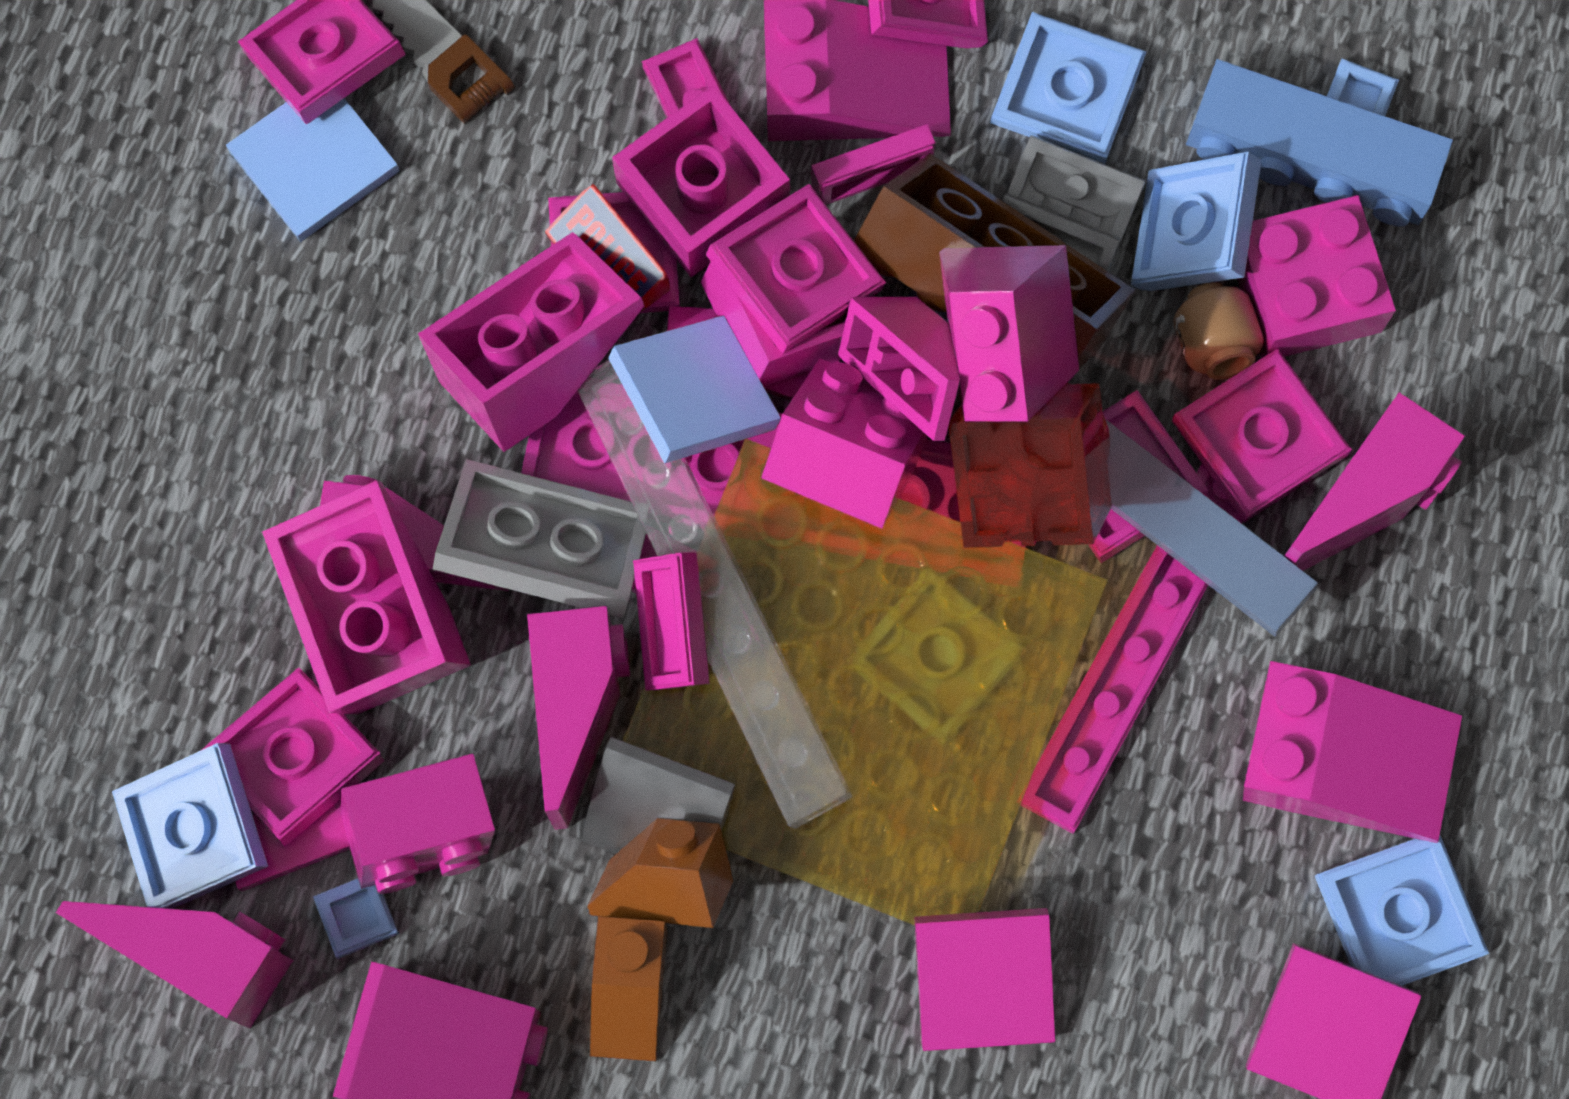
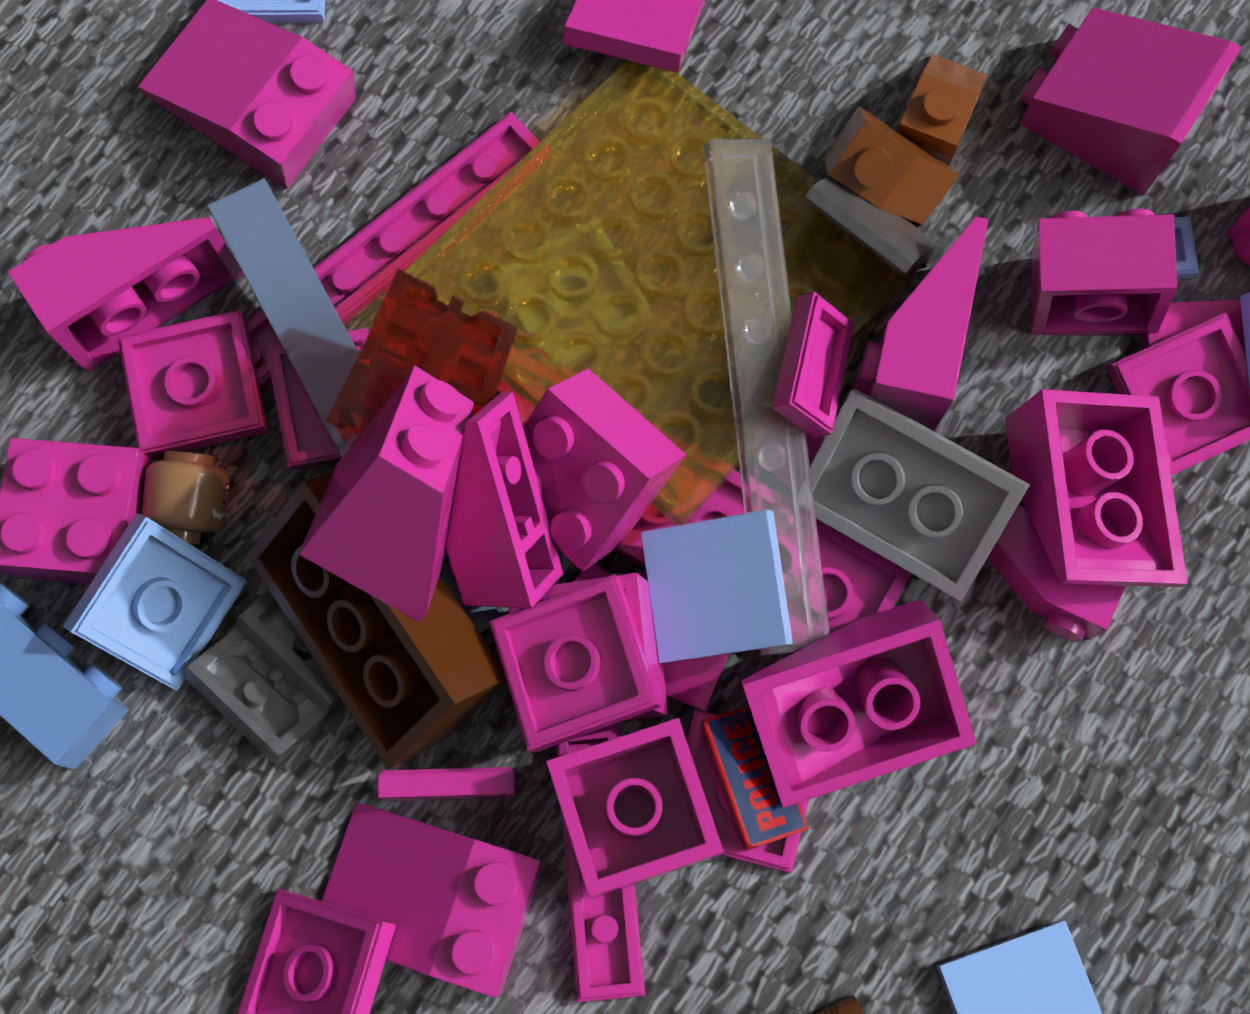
camera: 160 degrees left, 0 degrees up
(1068, 87) = (216, 810): light blue tile -> none

